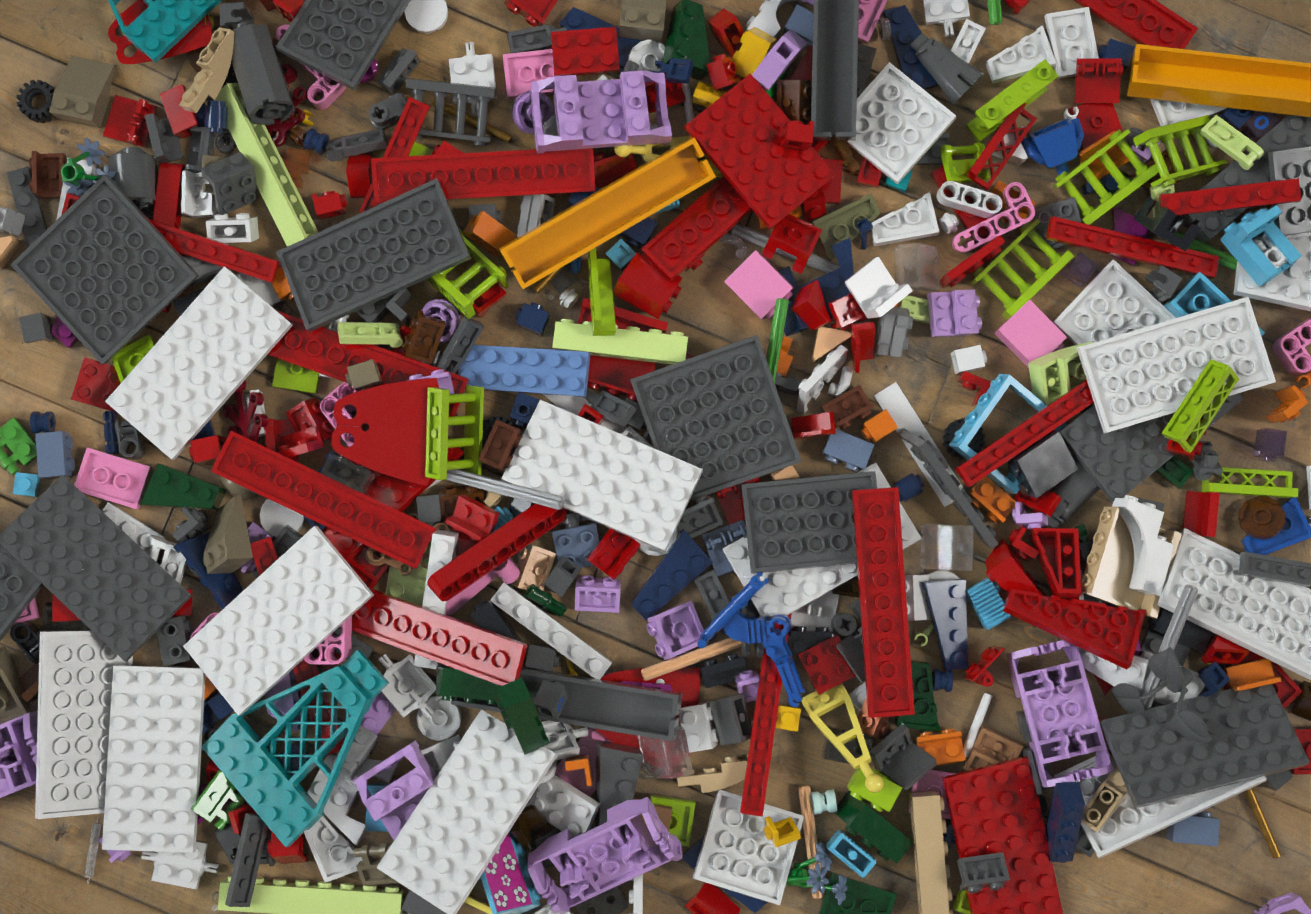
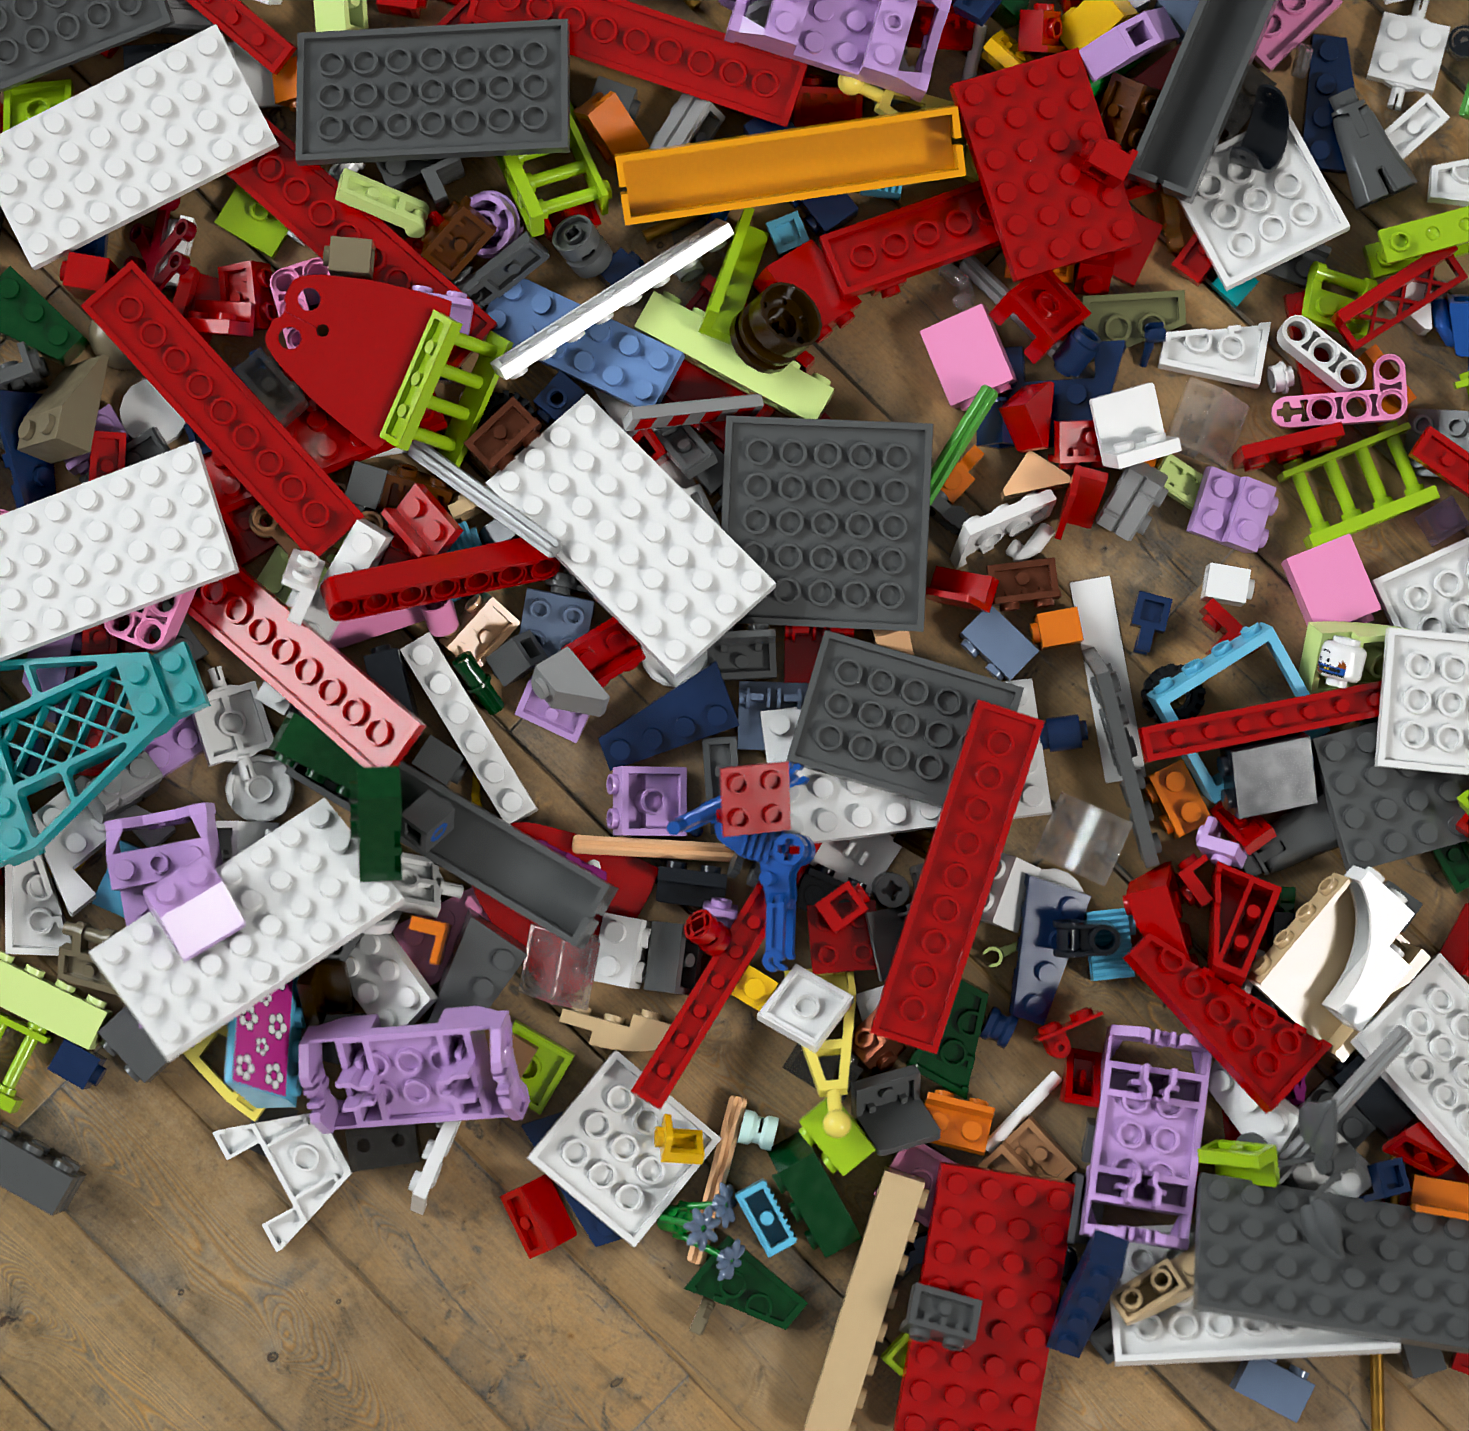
camera: 25 degrees right, 0 degrees up
(414, 582) = (302, 576): none -> white bracket
(430, 815) = (194, 908): none -> slope
(501, 312) = (582, 246): none -> dark grey wheel
(528, 343) = (601, 306): none -> white plate
(601, 580) = (569, 685): none -> light grey slope
(608, 385) = (691, 412): none -> light grey tile
(639, 314) = (775, 328): none -> dark brown wheel
(744, 606) = (754, 799): none -> red hinge
(746, 696) = (704, 928): none -> red wheel
(821, 656) = (829, 906): none -> red brick
(823, 256) = (1076, 351): none -> dark blue brick
(823, 718) = (805, 1008): none -> white tile
(882, 79) = (1266, 132): none -> black piece
(931, 395) = (1150, 616): none -> dark blue plate
(970, 609) = (1082, 938): none -> black piece
(1005, 692) = (1082, 1078): none -> red slope
(1059, 378) = (1341, 661): none -> white head
(1123, 703) = (1243, 1160): none -> lime panel

